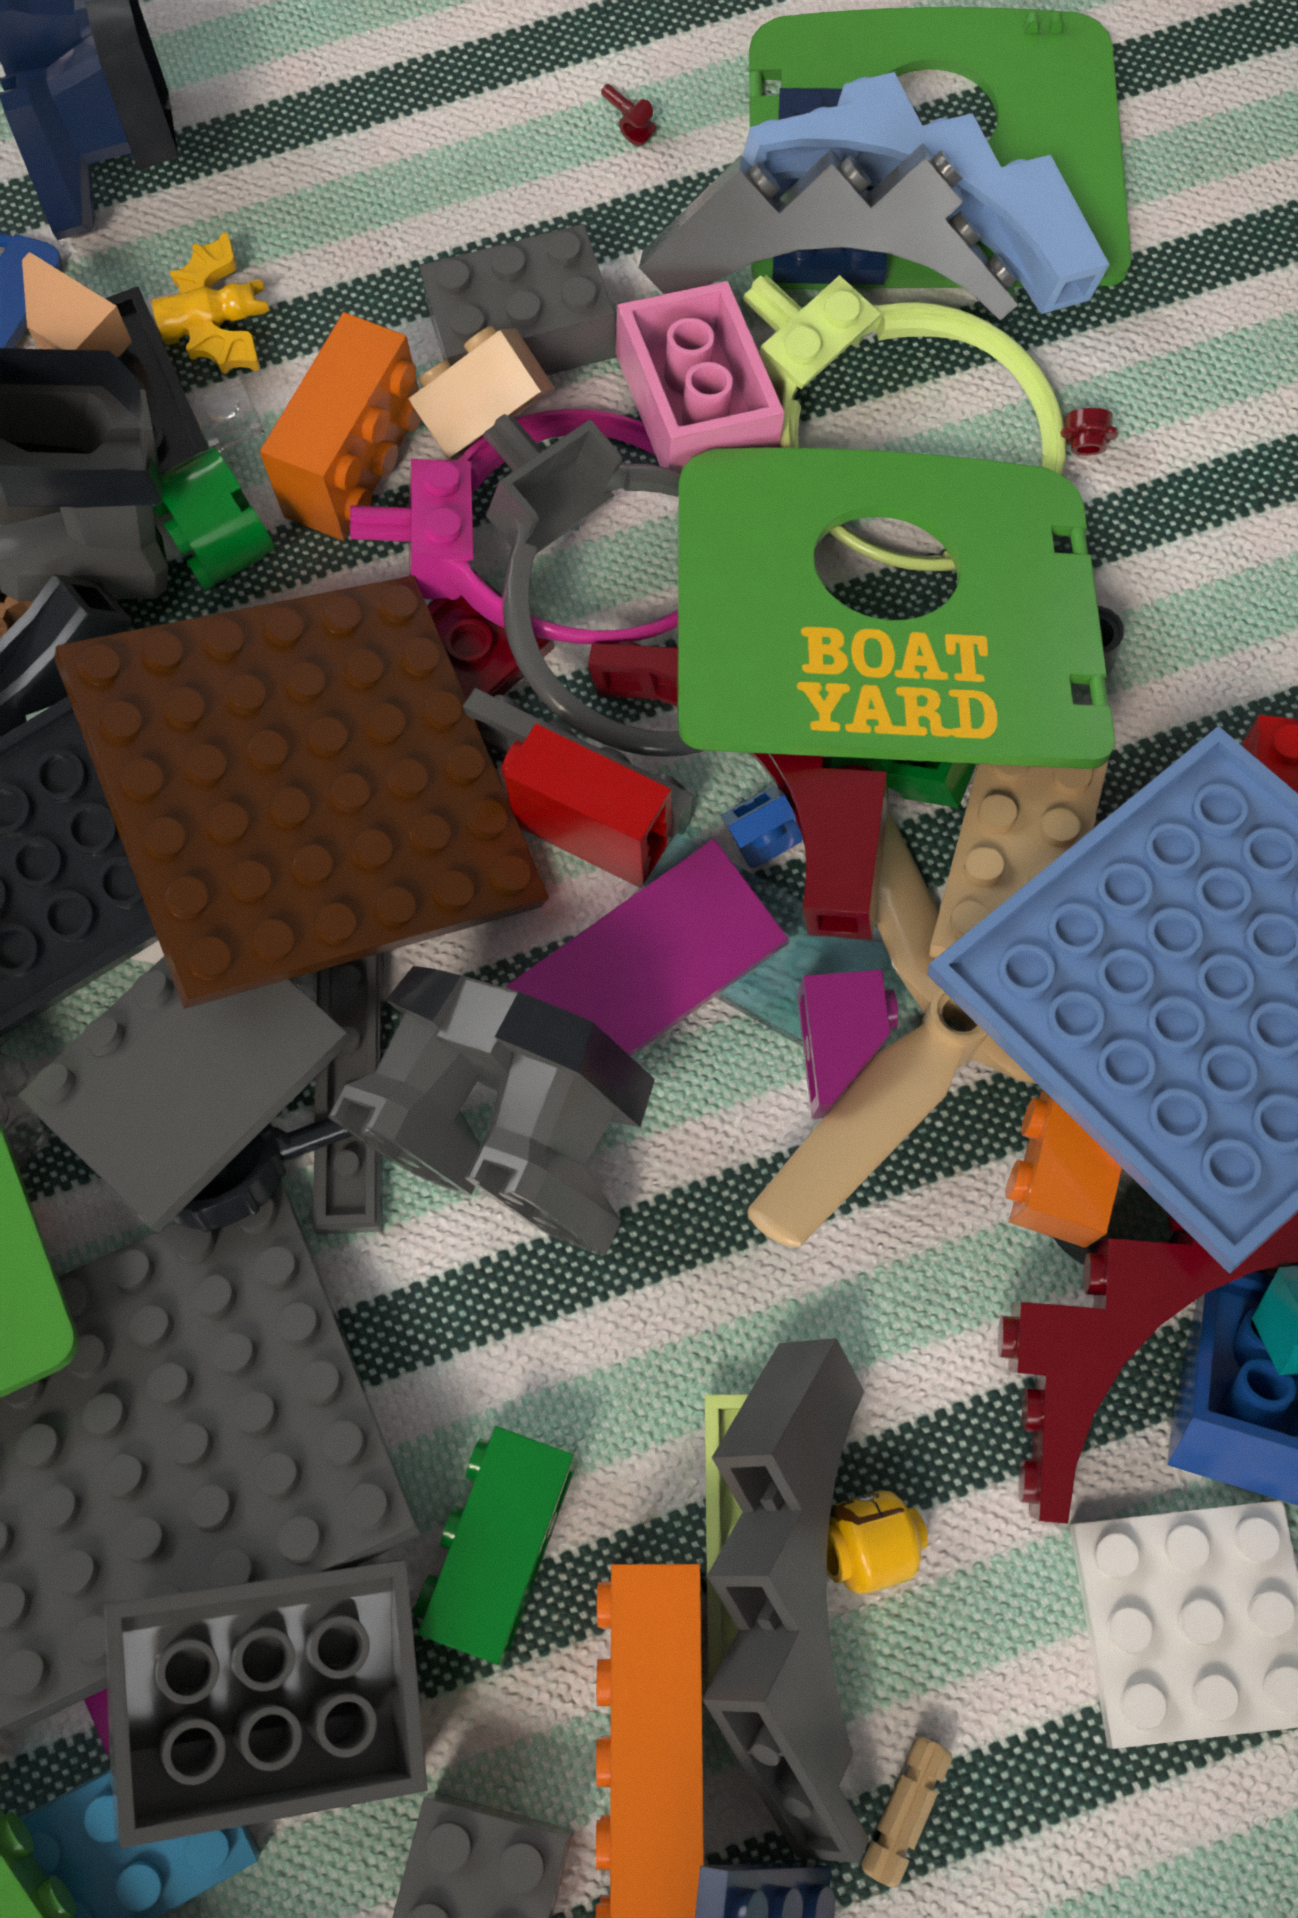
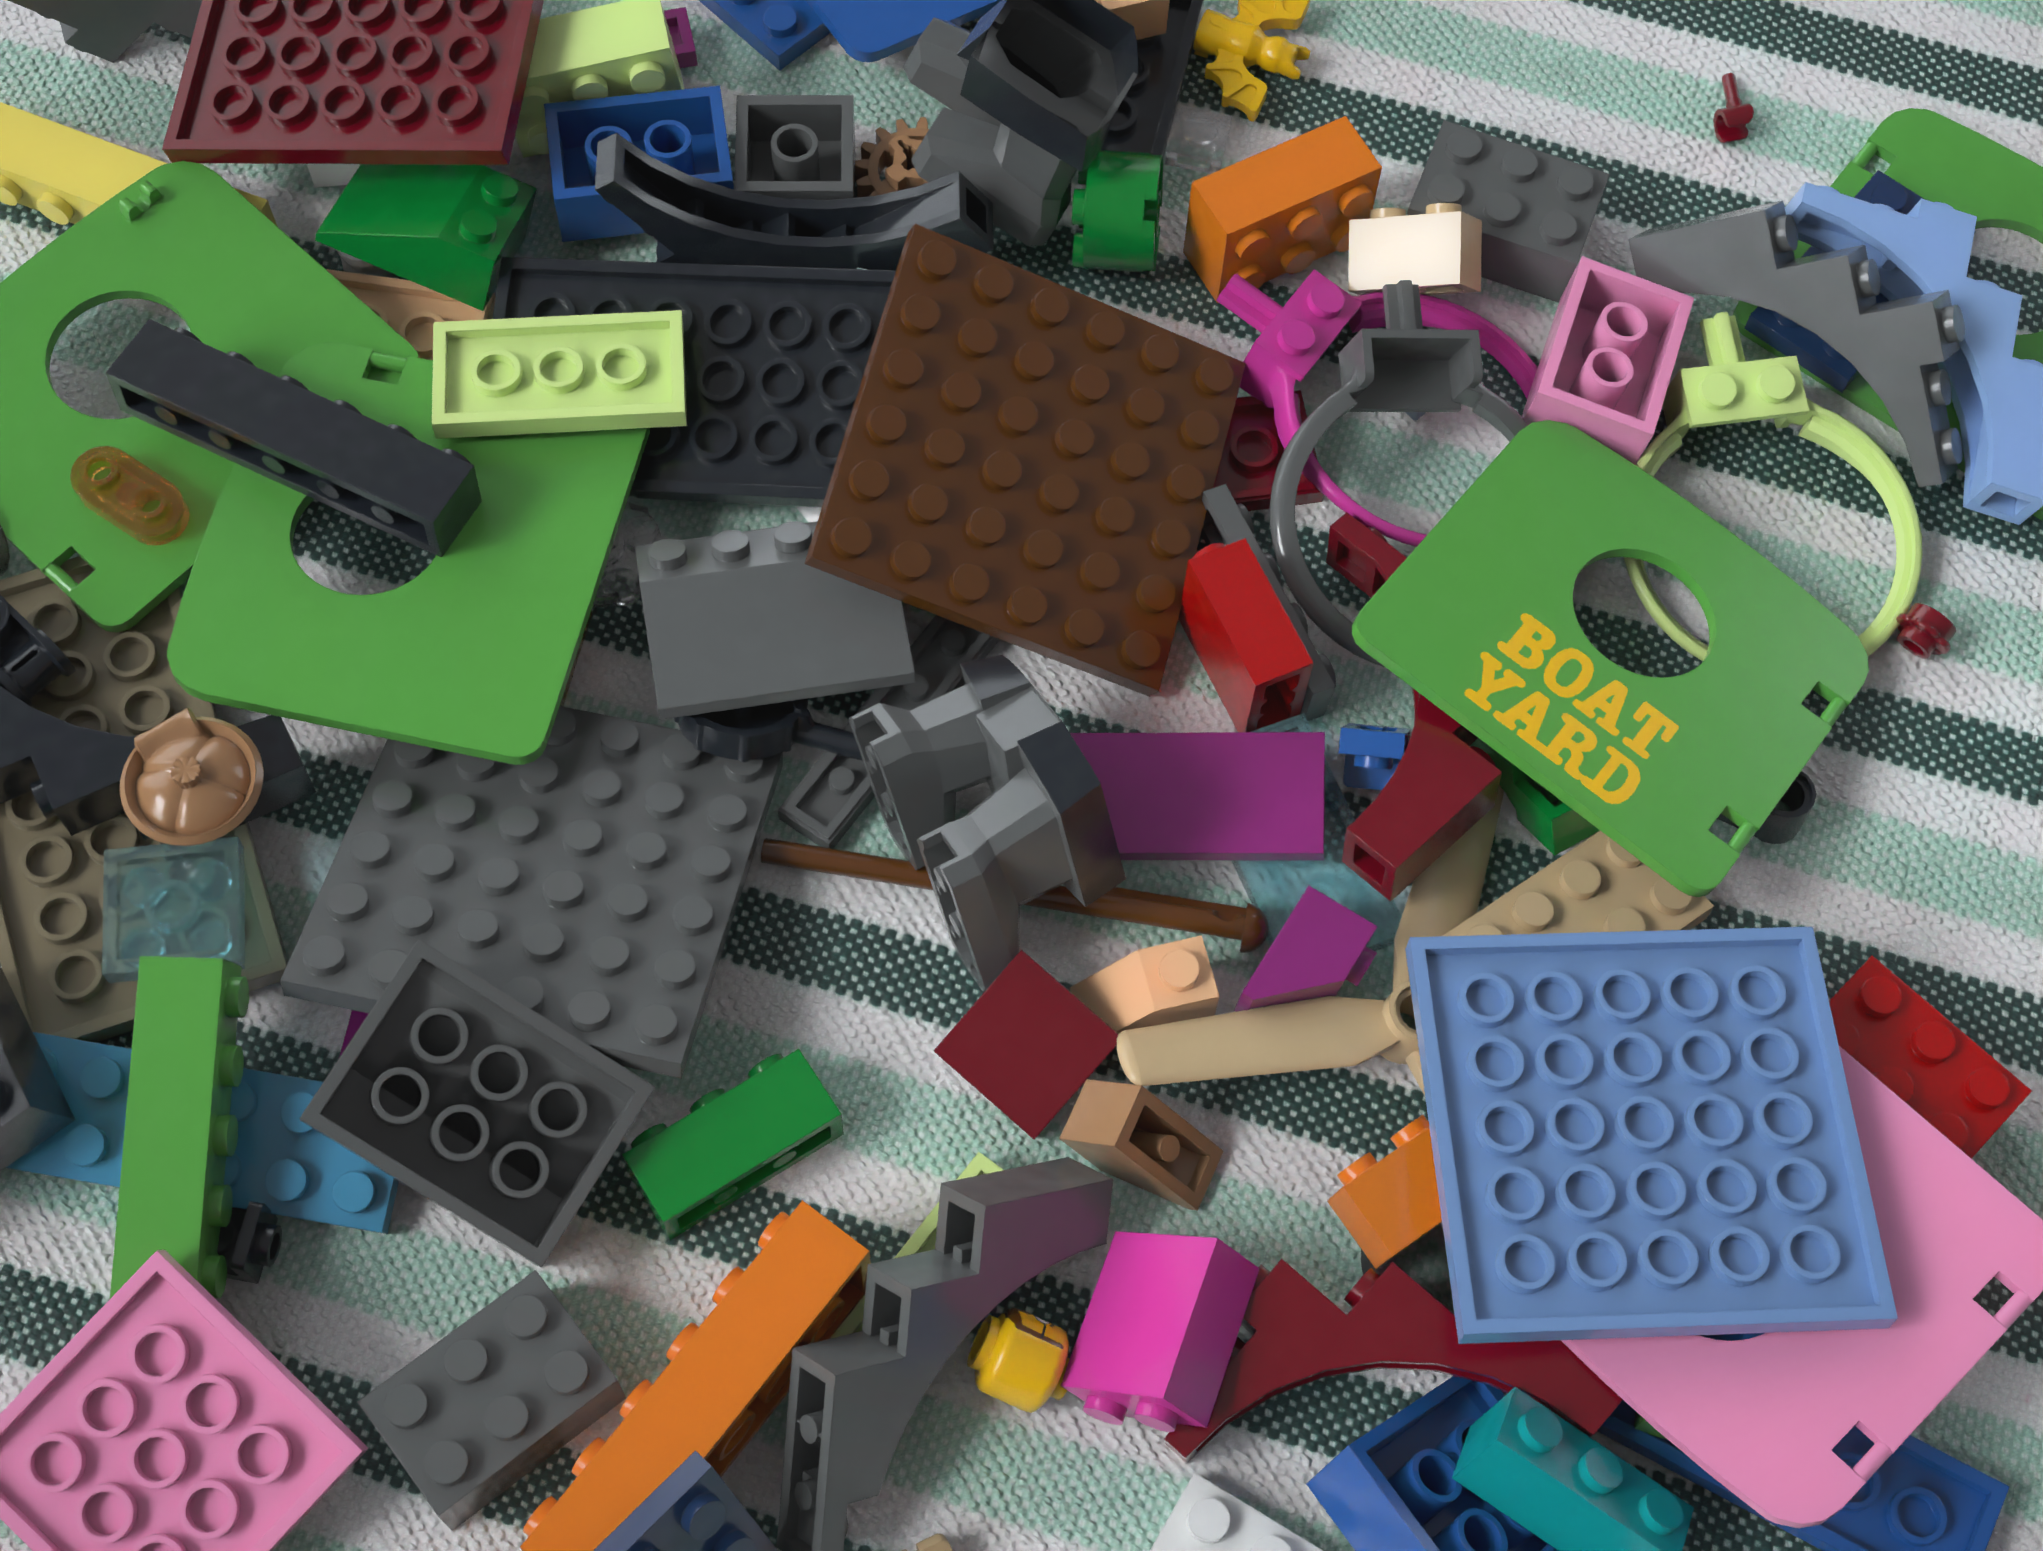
camera: 30 degrees right, 5 degrees down
(670, 1089) = (1119, 904): none -> reddish brown bar
(675, 1274) = (1027, 1044): none -> dark red tile
(735, 1159) = (1153, 986): none -> light nougat slope
(824, 1285) = (1141, 1142): none -> medium nougat slope
(968, 1435) = (1160, 1329): none -> dark pink brick

